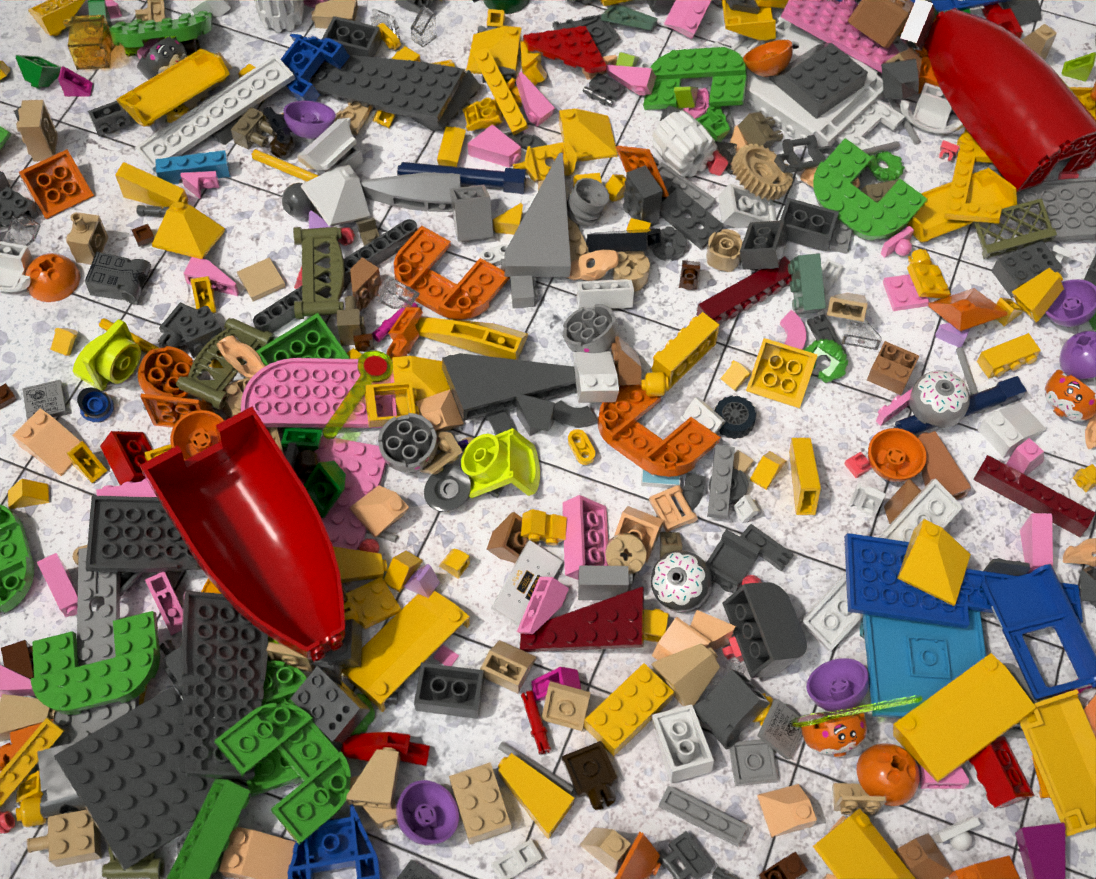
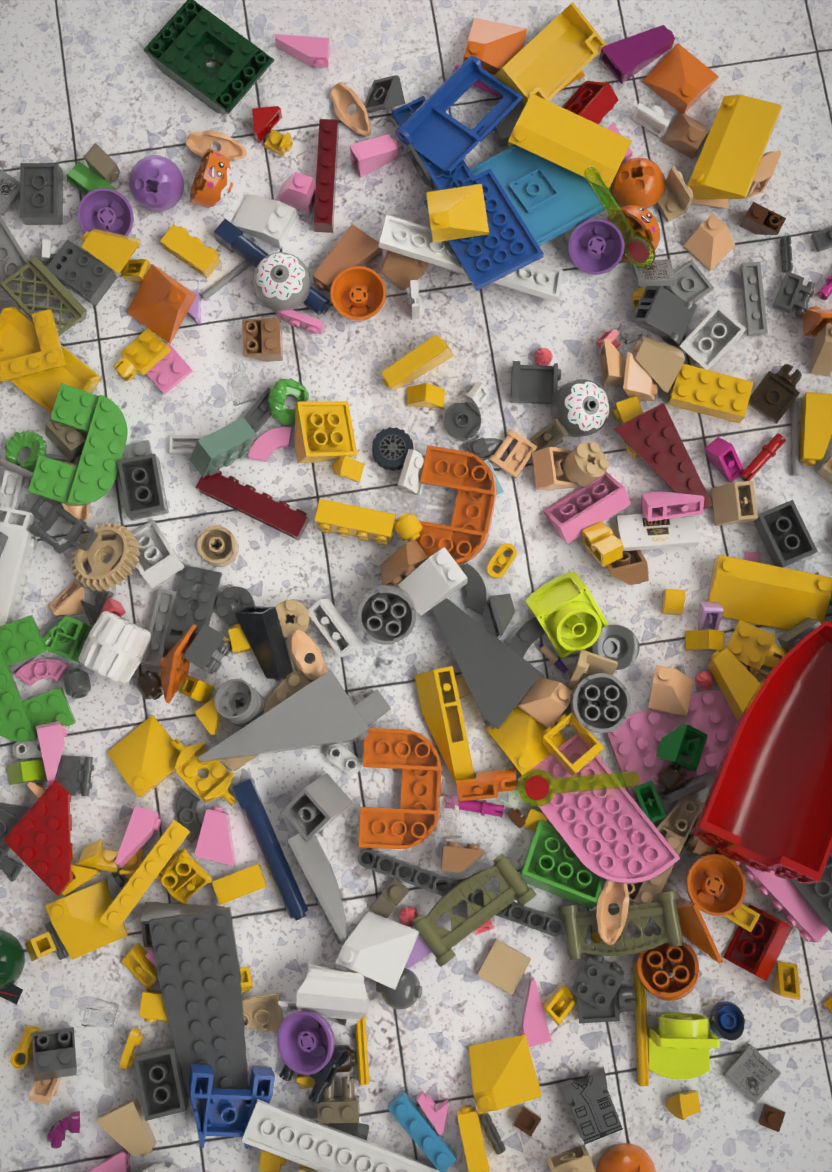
camera: 120 degrees left, 20 degrees up
(47, 441) = (789, 1032): light nougat slope -> none
(350, 322) = (509, 838): dark tan brick -> none
(509, 221) = (297, 766): yellow slope -> none
(566, 706) = (740, 438): tan tile -> none
(603, 582) = (622, 465): light grey brick -> none
(686, 96) = (40, 684): lime slope -> none
(689, 274) = (263, 564): reddish brown slope -> none
(721, 482) = (467, 425): light grey plate -> none
(742, 461) = (434, 423): tan tile -> none
(758, 130) = (52, 588): dark tan brick -> none
(763, 245) = (197, 509): dark grey brick -> none
(765, 628) = (587, 318): dark grey brick -> none
(770, 549) = (502, 363): dark grey hinge -> none
(848, 306) = (224, 399): tan slope -> none
(858, 464) = (376, 327): coral tile -> none
(899, 243) = (116, 393): bright pink tile -> none

